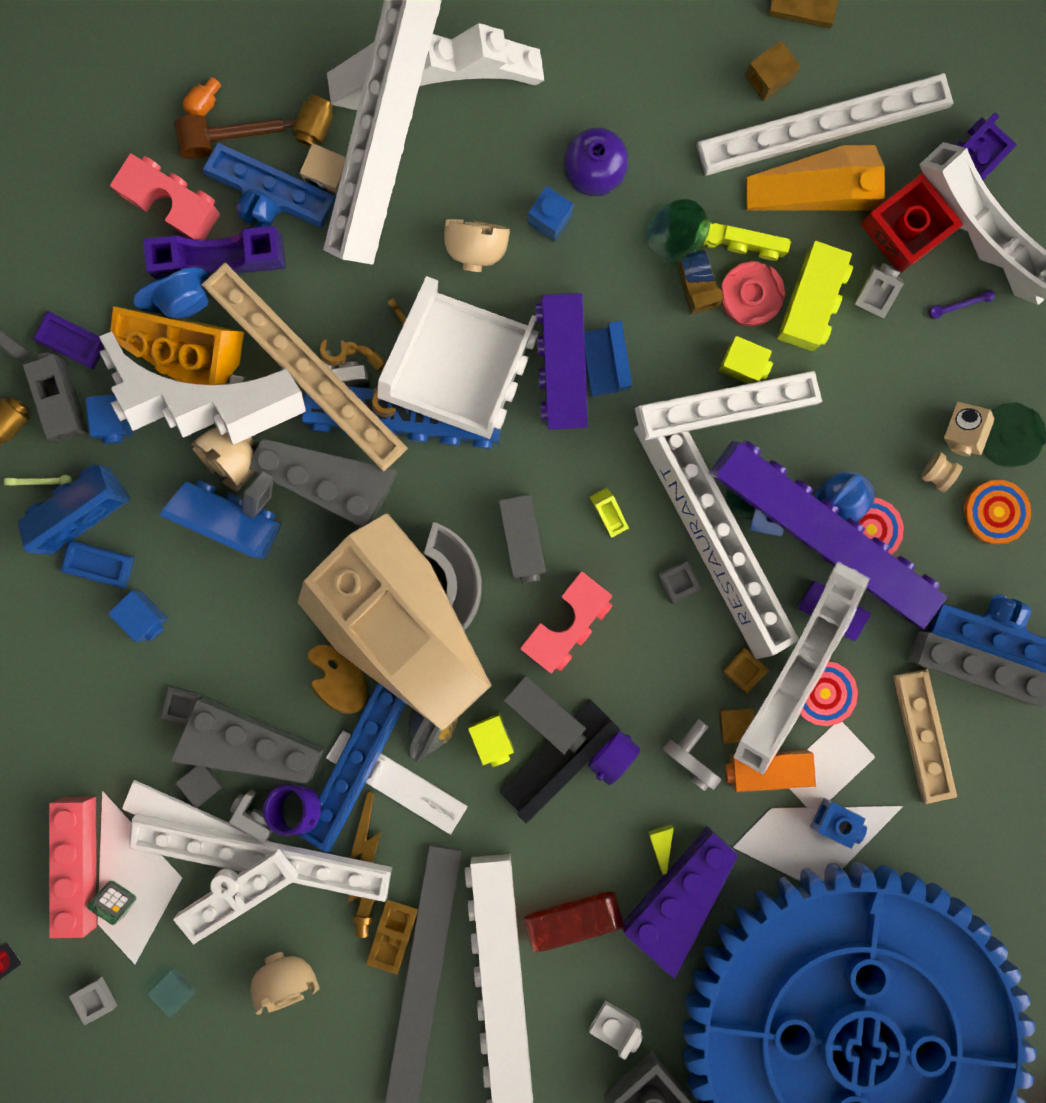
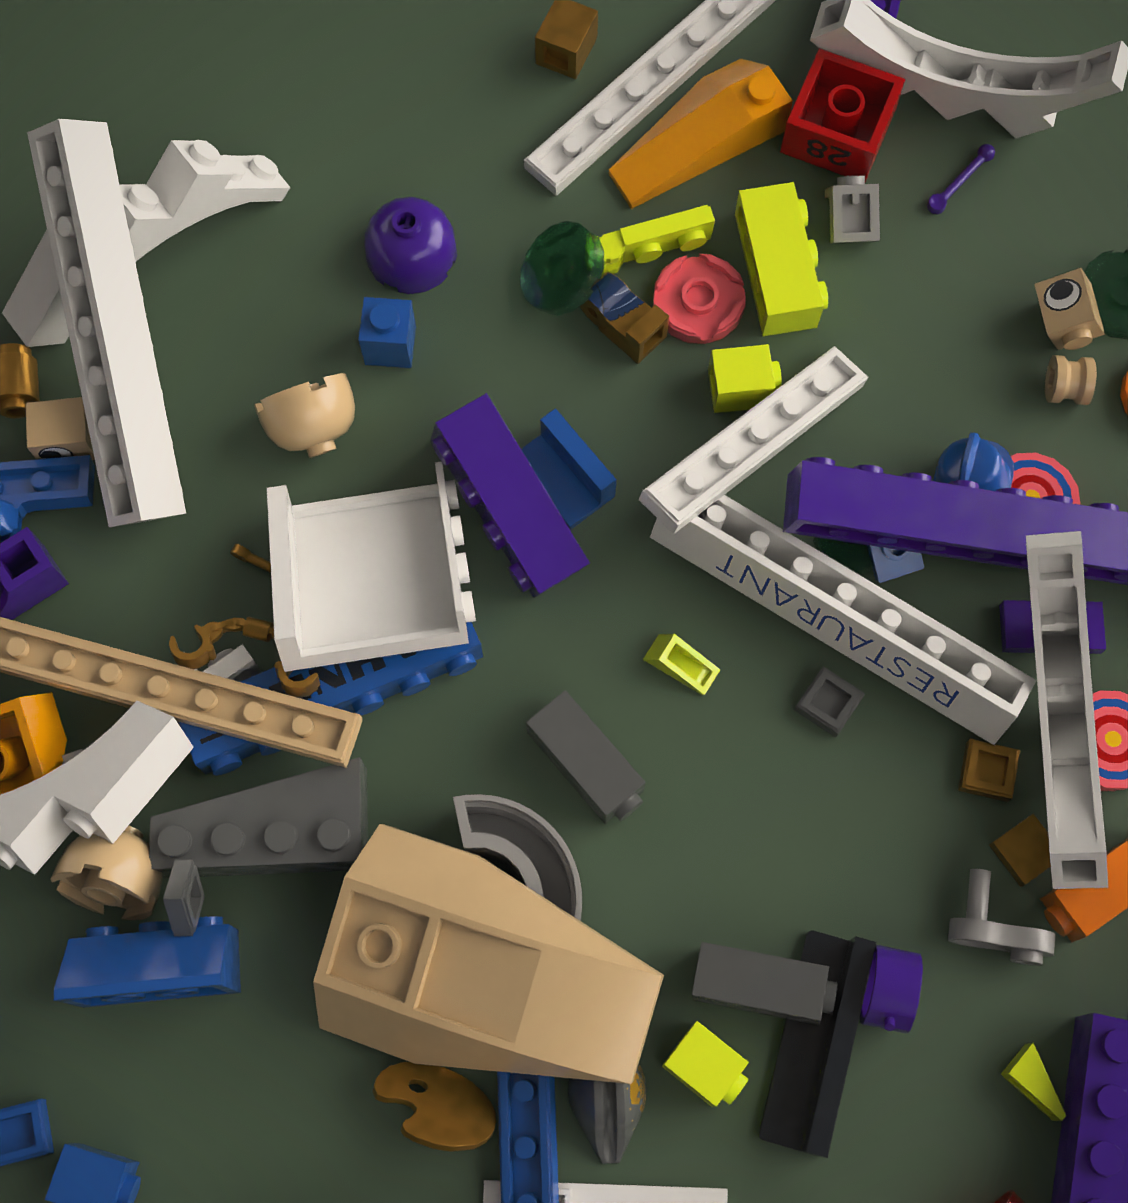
camera: 30 degrees left, 15 degrees down
(551, 647) = (712, 885): coral arch -> none

